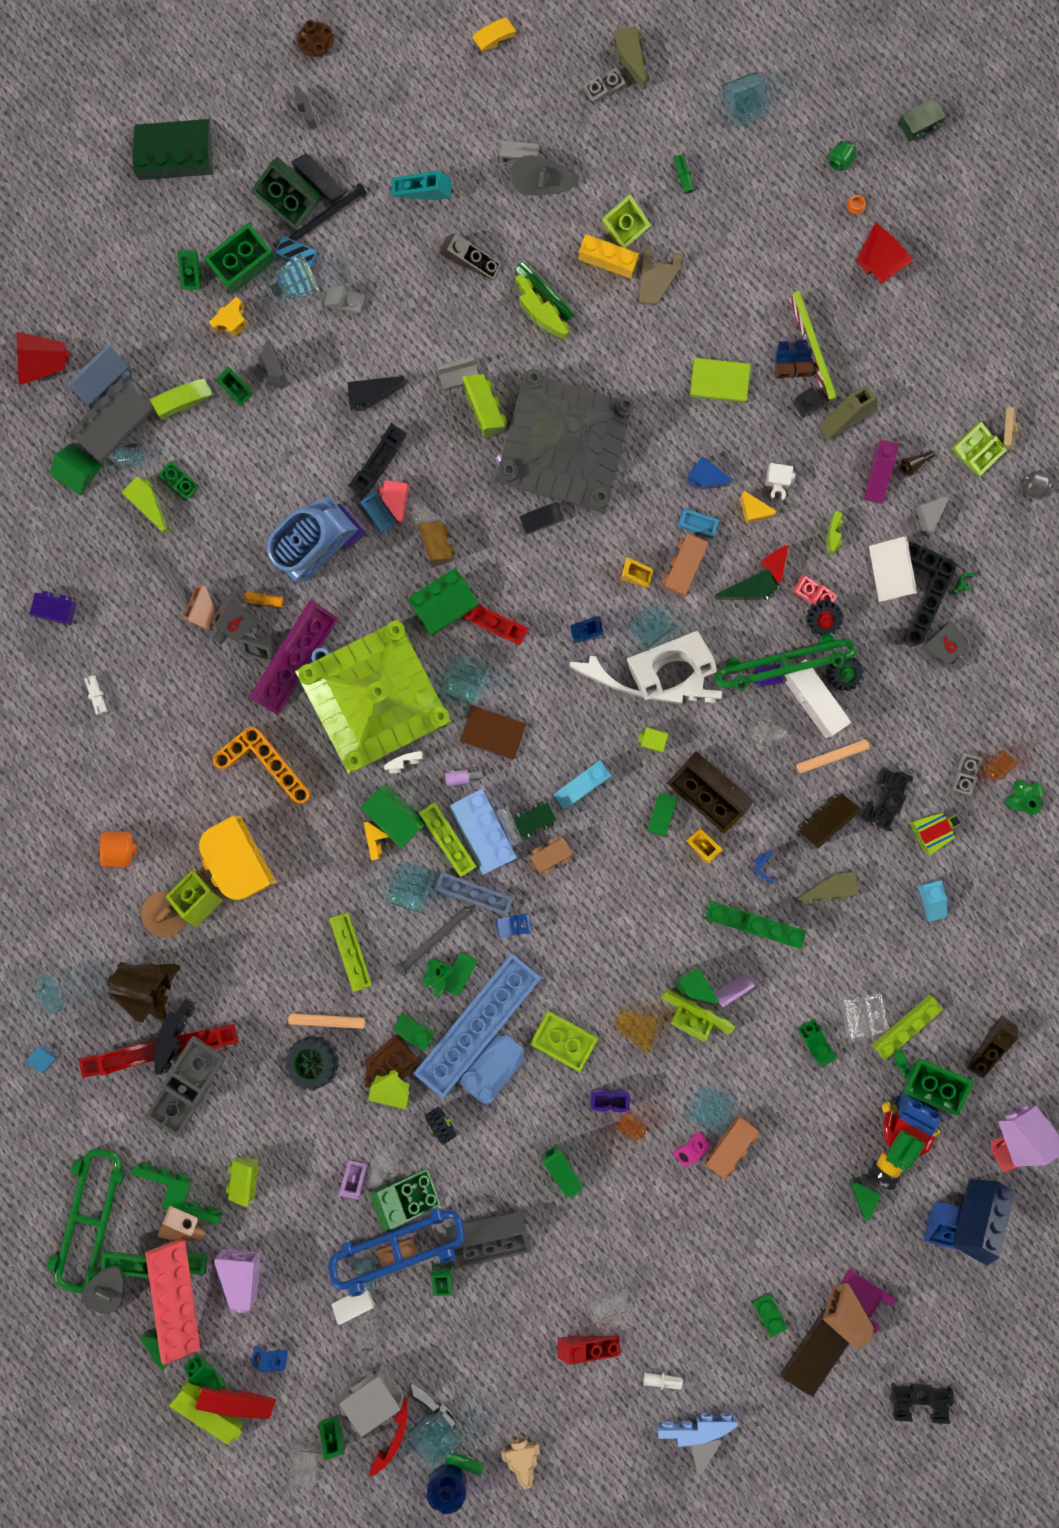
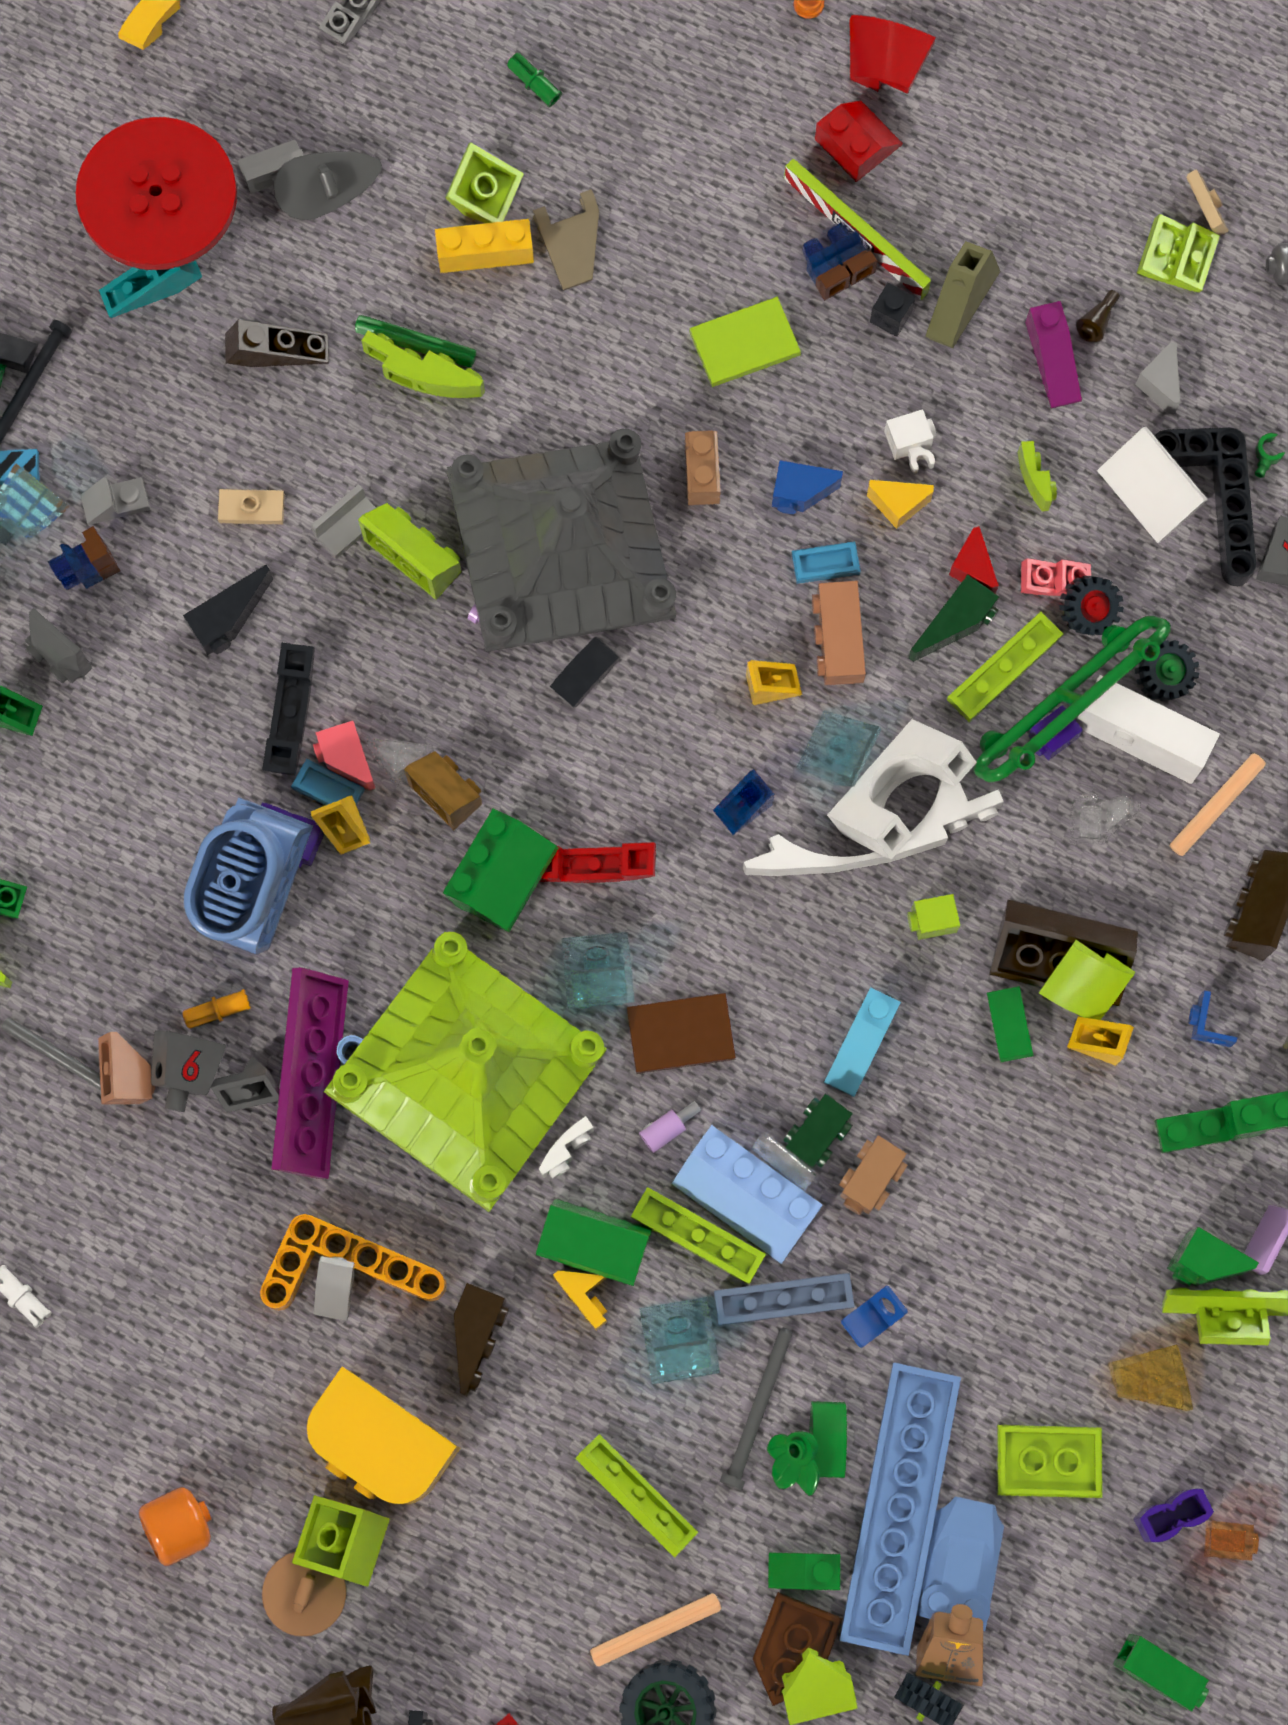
camera: 30 degrees left, 10 degrees down
(252, 772) = (334, 1288): none -> light grey slope
(311, 328) = (84, 563): none -> hips
(313, 825) = (474, 1325): none -> dark brown slope
(374, 535) = (342, 824): none -> yellow slope
(413, 339) = (251, 506): none -> tan plate
(445, 139) = (156, 193): none -> red piece
(466, 1106) = (952, 1647): none -> medium nougat torso
(660, 439) = (702, 467): none -> medium nougat brick
(712, 814) = (1086, 982): none -> lime slope
(762, 627) = (1005, 667): none -> lime plate
(840, 295) = (855, 138): none -> red slope

